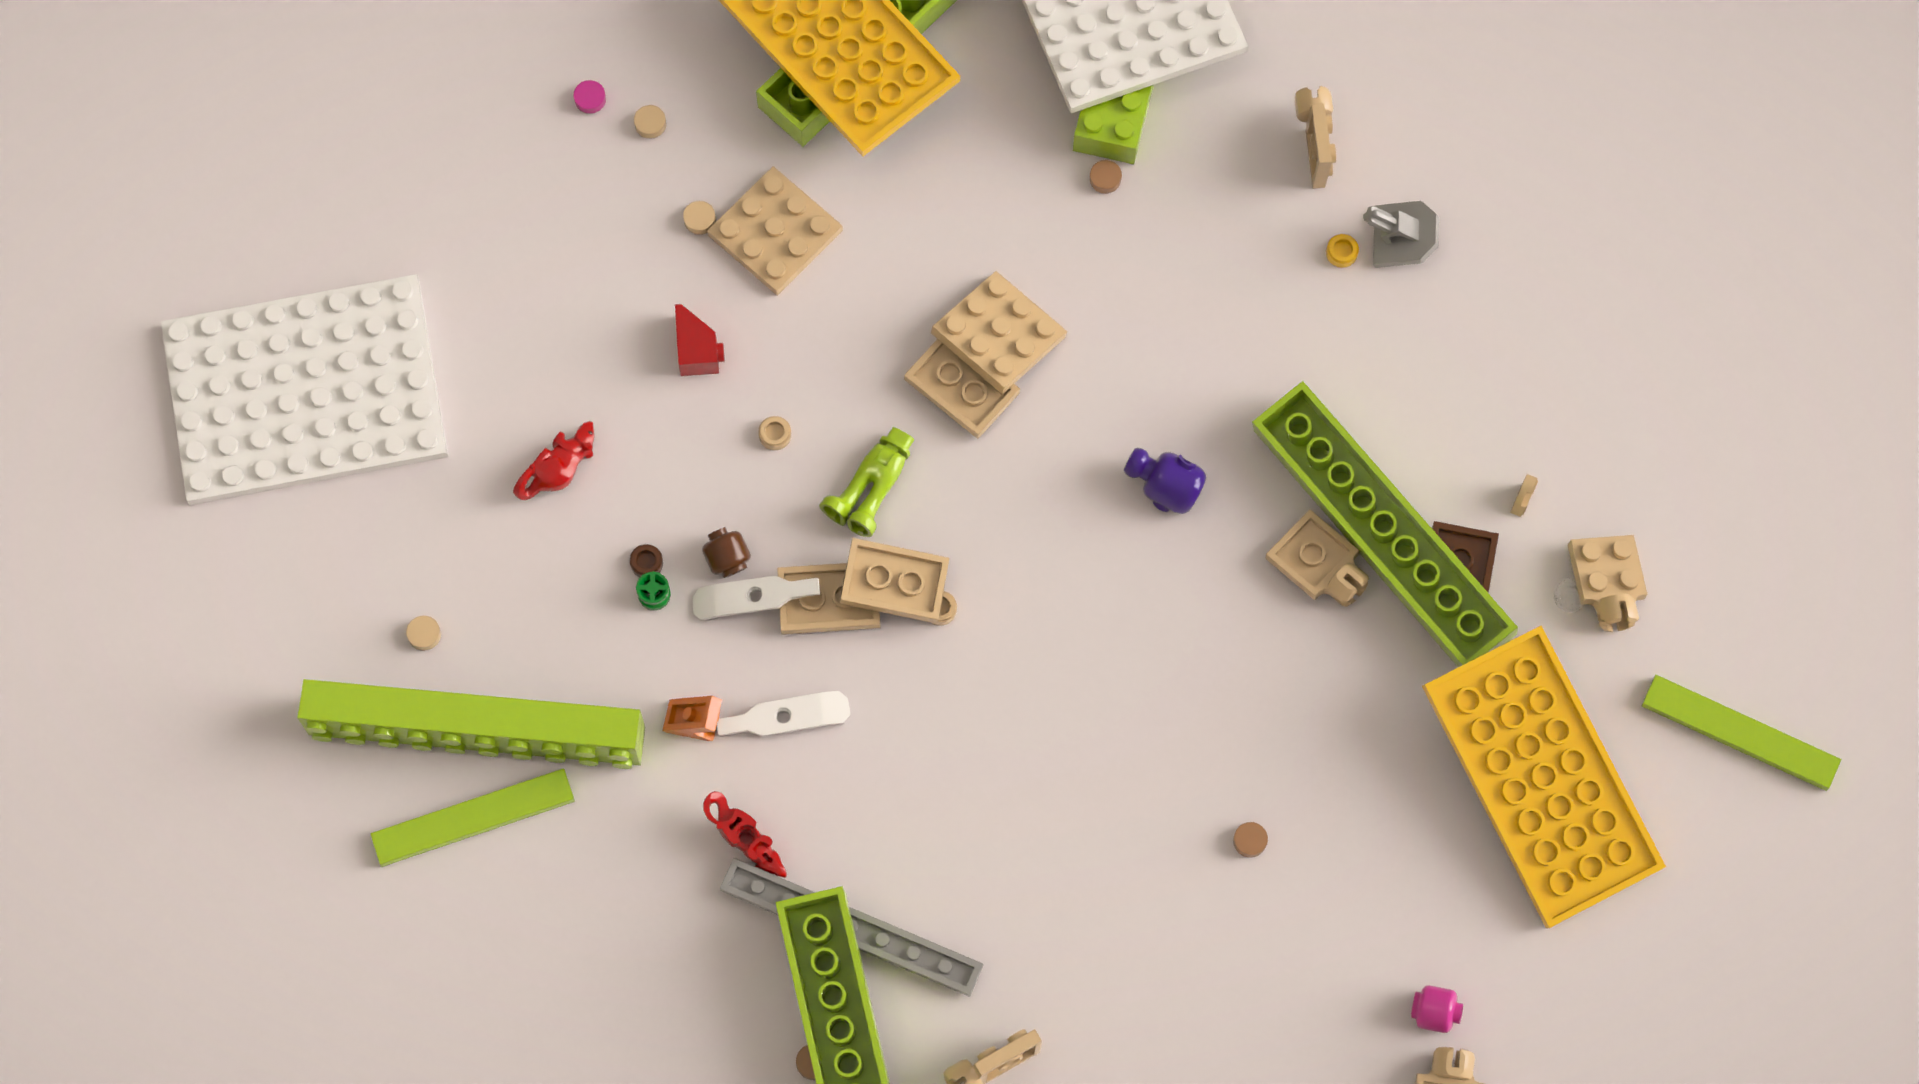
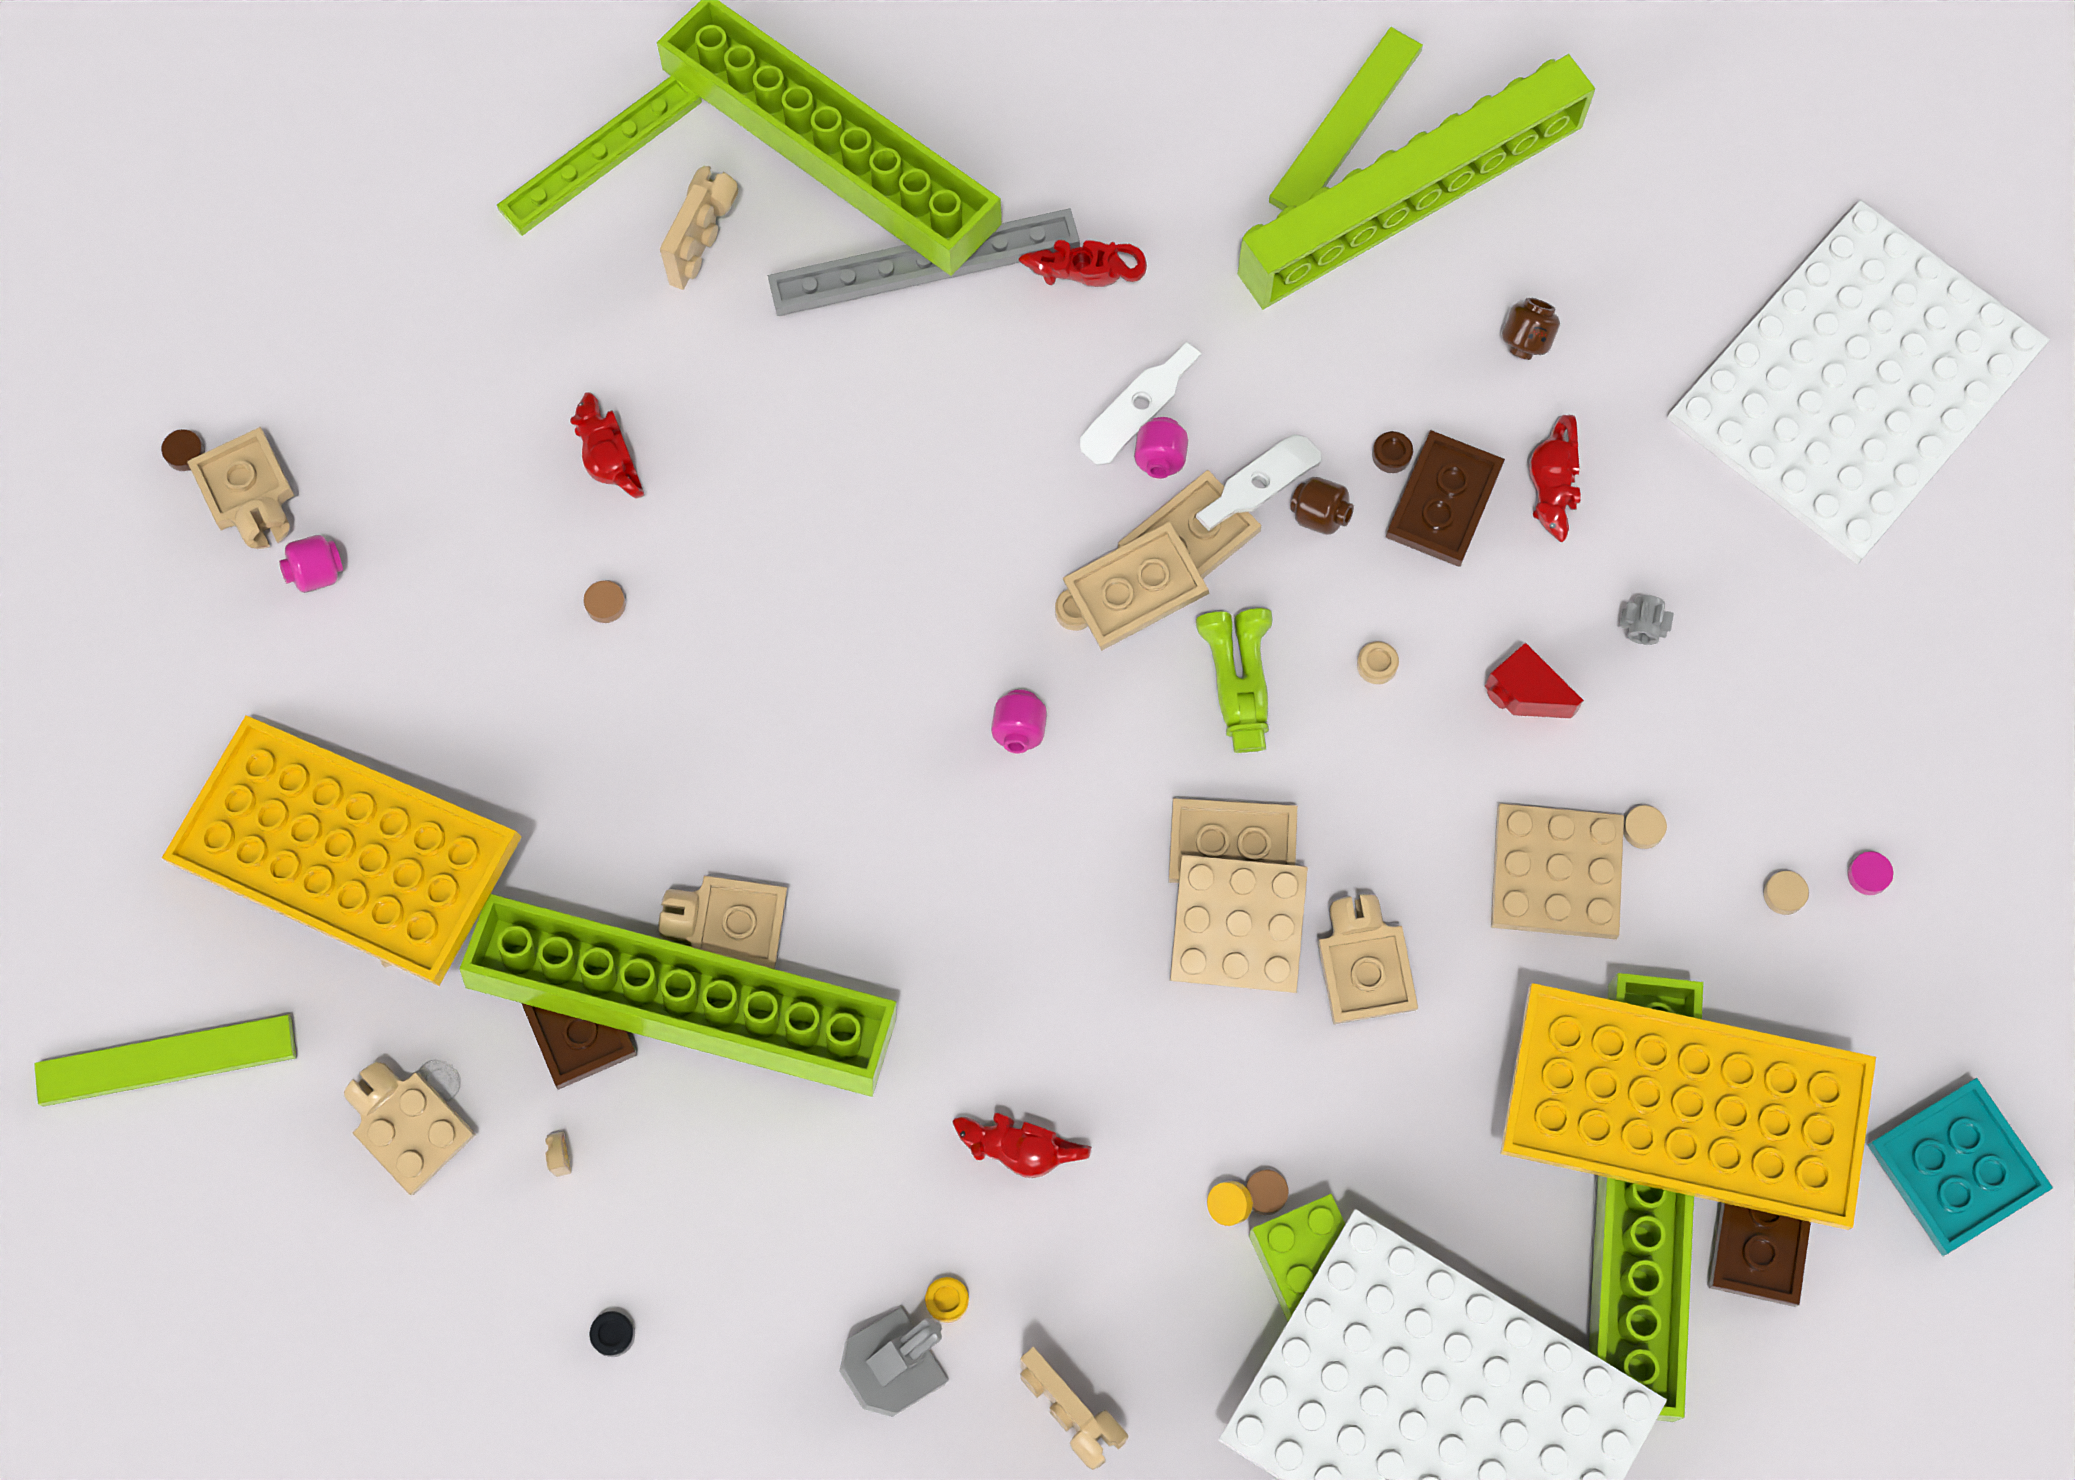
camera: 145 degrees right, 0 degrees up
(423, 633) = (1537, 243): tan tile -> none
(486, 568) = (1531, 328): none -> reddish brown head
(586, 331) = (1646, 619): none -> light grey gear
(641, 502) = (1445, 498): none -> reddish brown plate
(652, 583) = (1360, 415): green wheel -> none
(693, 717) = (1221, 337): orange slope -> none
(798, 669) = (1161, 446): none -> dark pink head
(940, 256) = (1365, 963): none -> tan plate
(1037, 553) = (1019, 721): none -> dark pink head
(1133, 183) = (1229, 1203): none -> yellow tile
(1169, 480) = (943, 892): dark purple piece -> none
(1179, 944) = (604, 448): none -> red animal
(1233, 294) = (1024, 1151): none -> red animal
(1559, 370) = (612, 1334): none -> black tile

